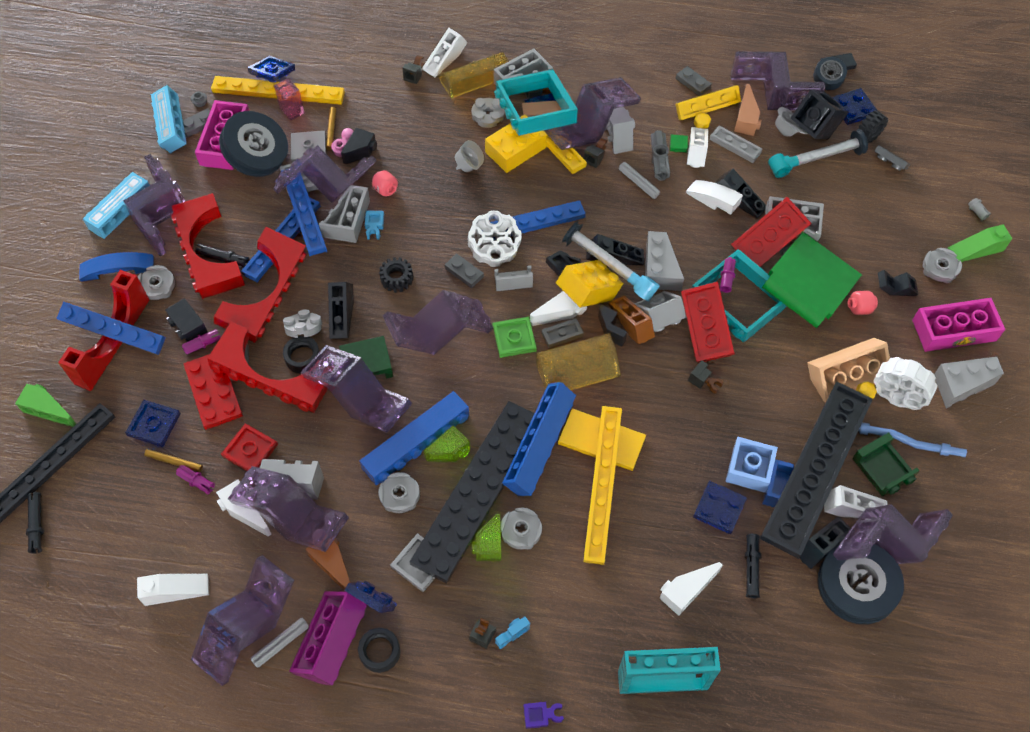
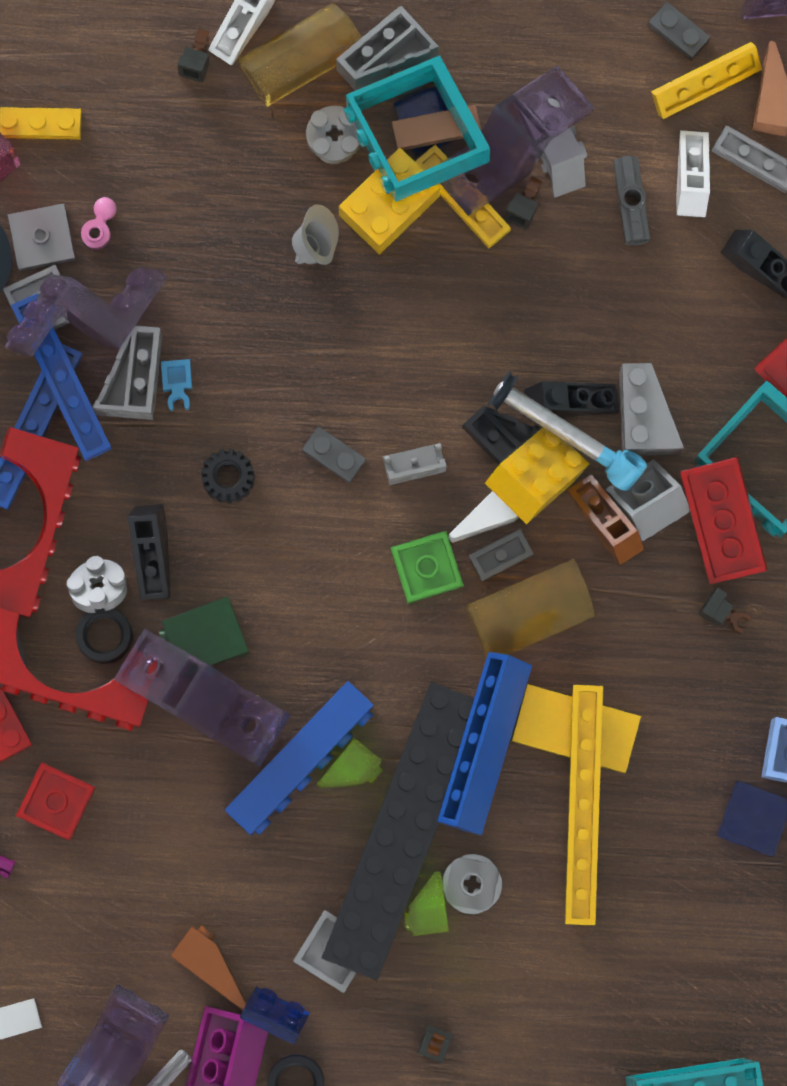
camera: 10 degrees left, 20 degrees up
(248, 516) = (59, 891): white slope -> none
(288, 508) = (136, 900): clear purple bracket -> none
(306, 476) = (125, 846): light grey wedge -> none
(331, 126) = (72, 194): pearl gold bar -> none
(358, 146) = (128, 231): black slope -> none
(384, 183) = (183, 304): coral head -> none
(407, 500) = (273, 839): light grey plate -> none
(437, 322) = (309, 568): clear purple bracket -> none
(503, 246) = (388, 374): white connector -> none
(515, 630) = (481, 1033): dark azure plate -> none
(548, 217) = (432, 349): blue plate -> none
(607, 320) = (568, 526): black slope -> none
(639, 180) = (600, 250): light grey axle -> none
(678, 143) = (660, 168): green tile -> none
(687, 587) = (710, 952): white slope -> none
(702, 120) = (698, 117): yellow tile -> none
(715, 195) = (724, 272): white slope -> none
(728, 275) = (752, 433): magenta axle -> none

